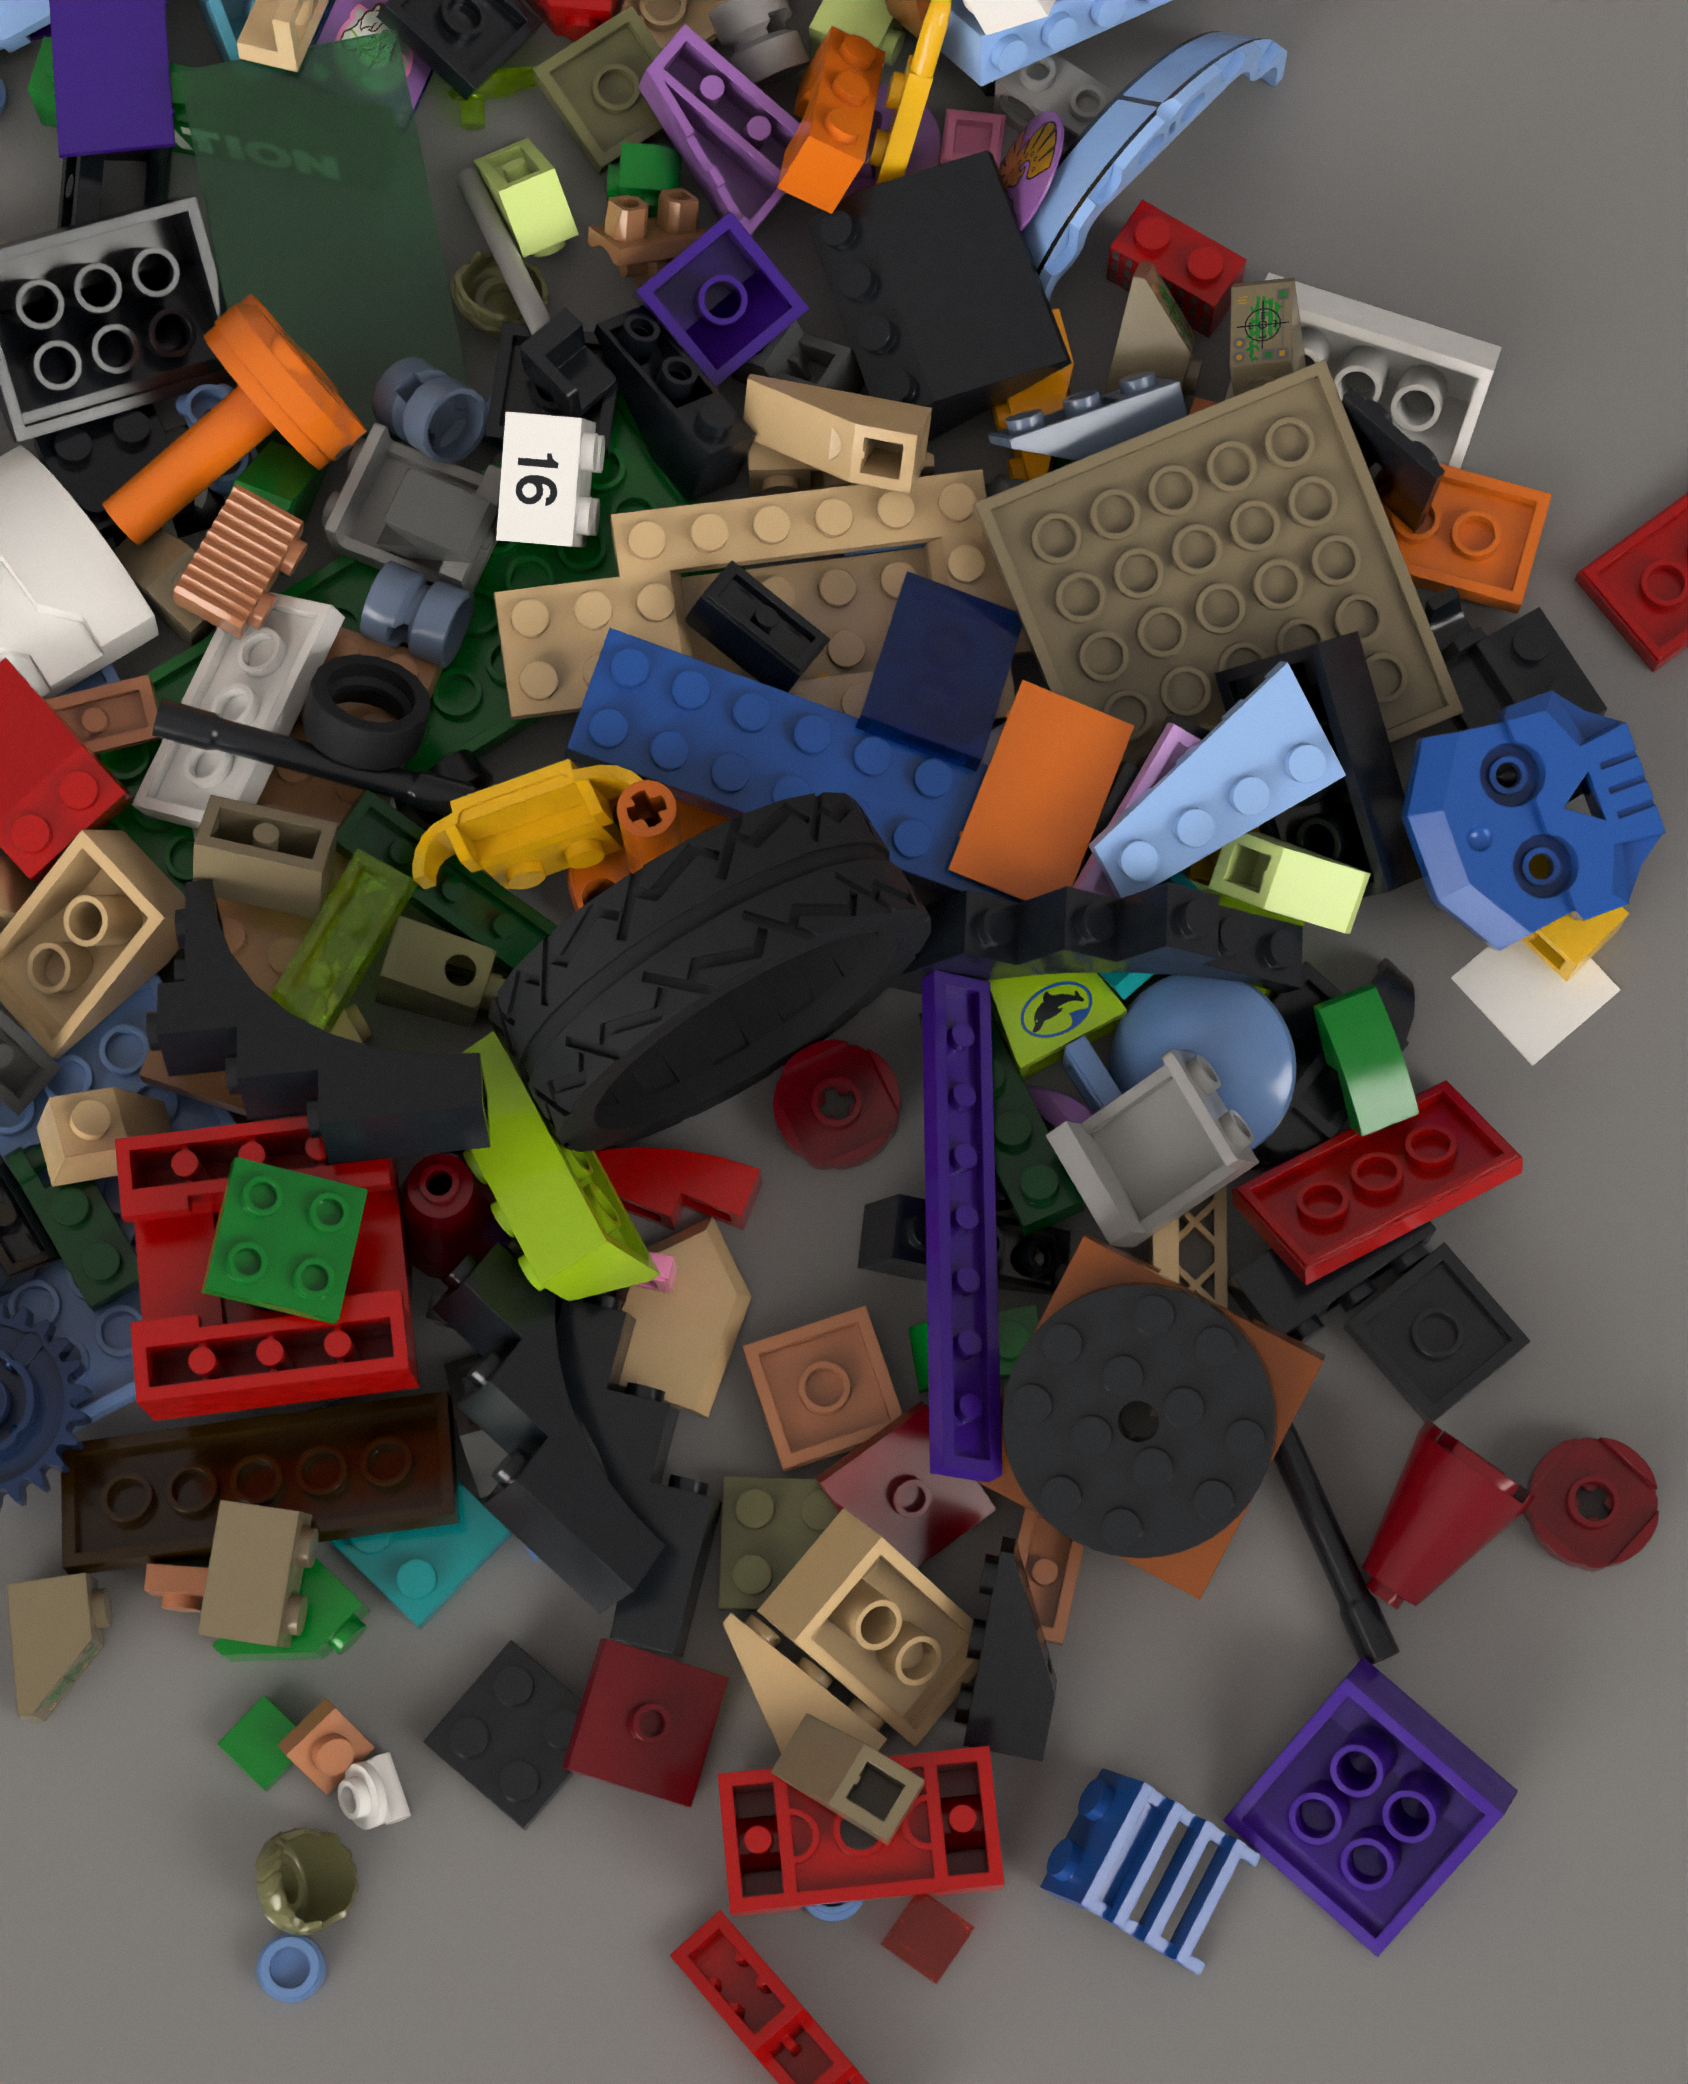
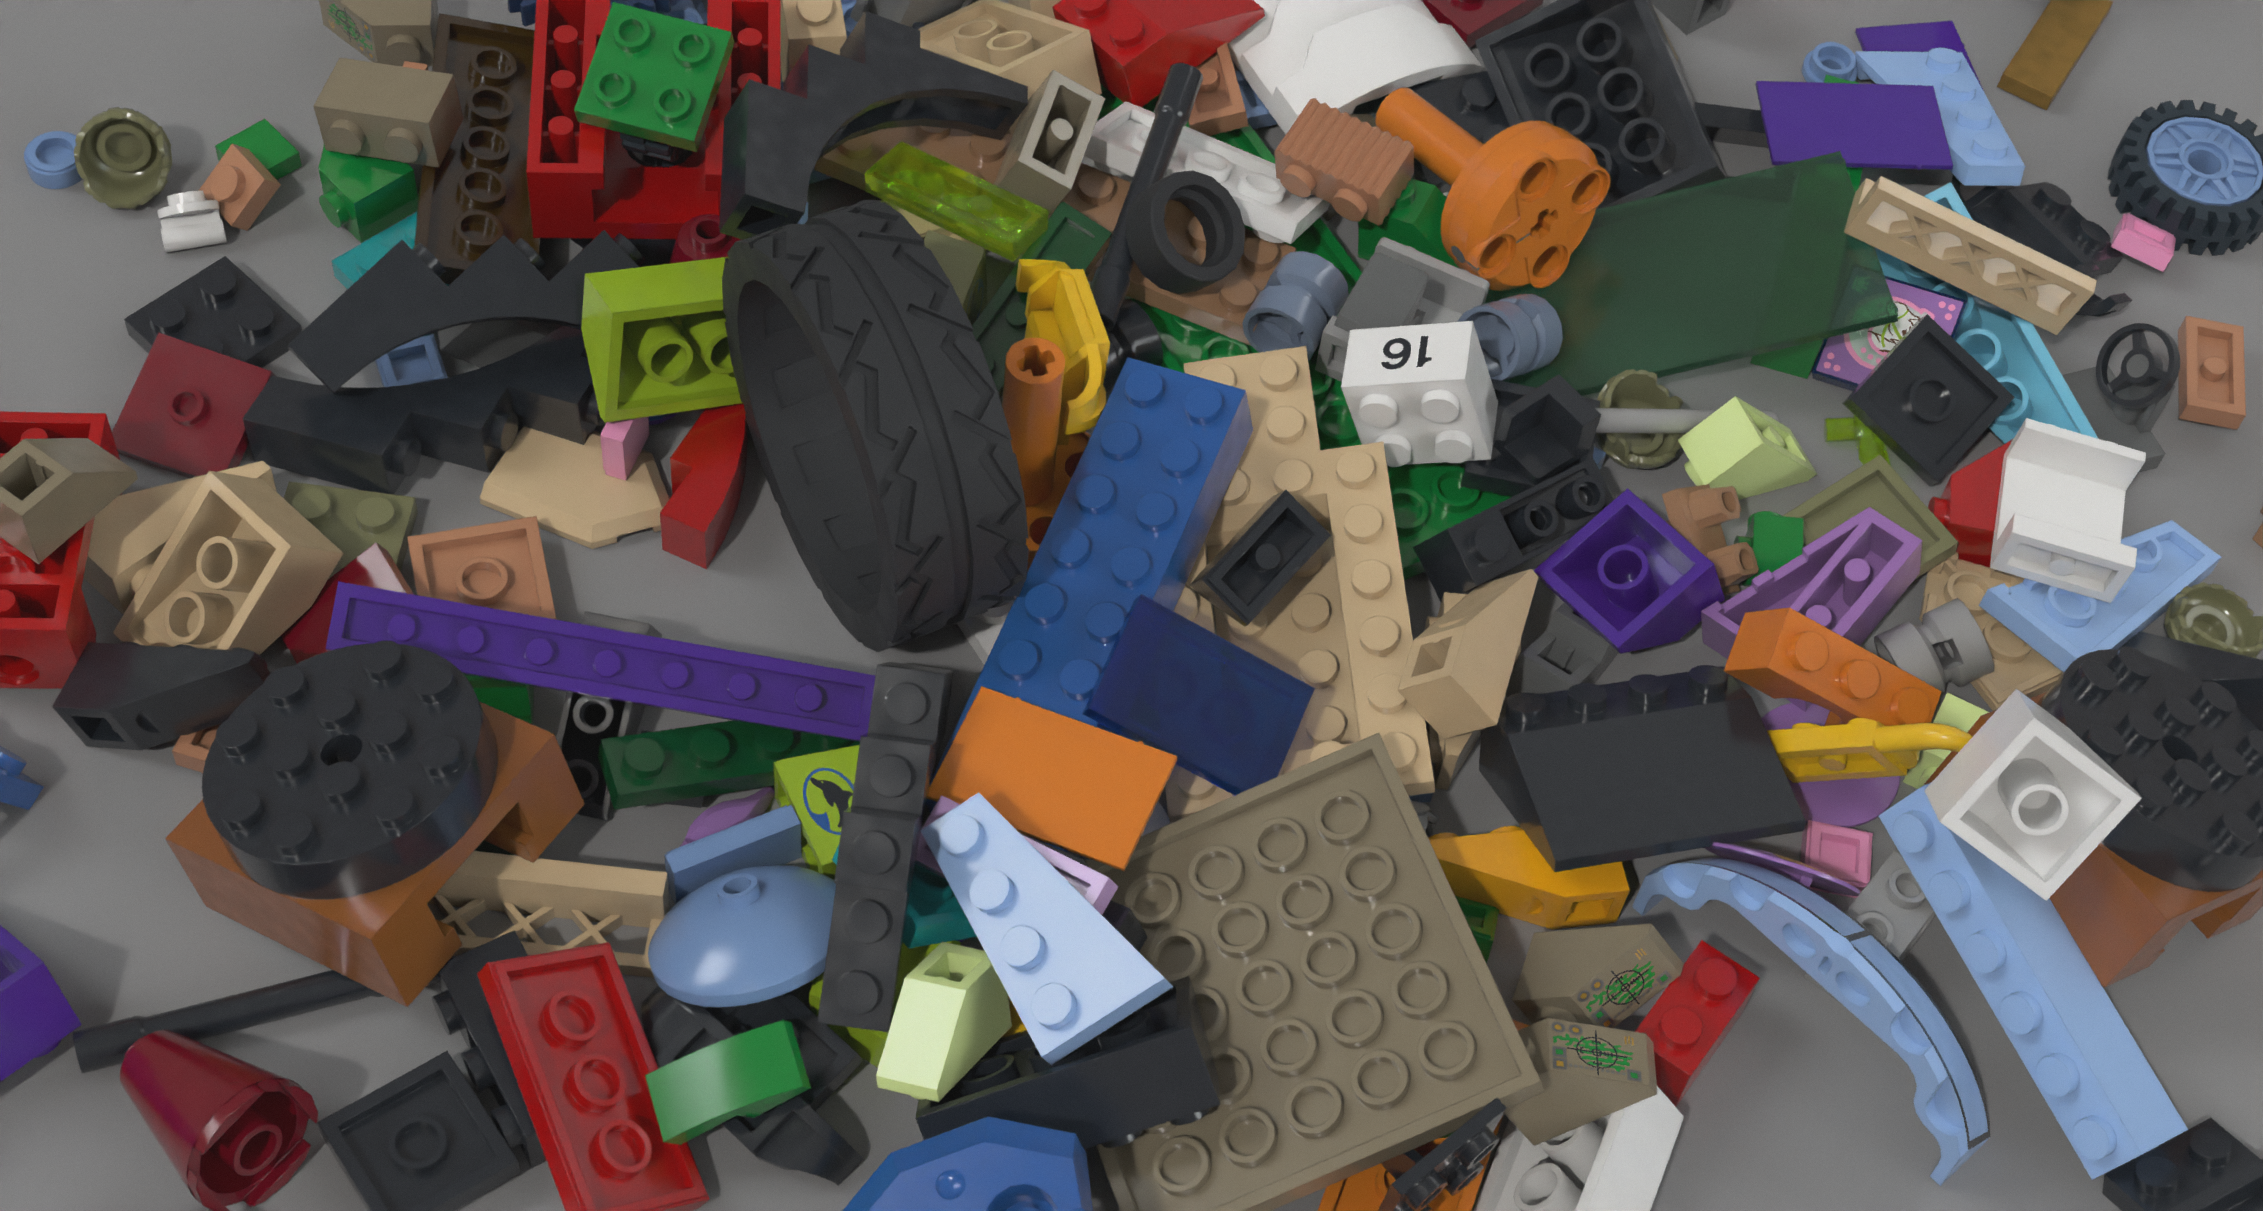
camera: 85 degrees right, 20 degrees down
(848, 1070) = (773, 591): dark red plate -> none
(1095, 421) = (1486, 885): sand blue slope -> none
(1155, 1150) = (651, 844): light grey panel -> none

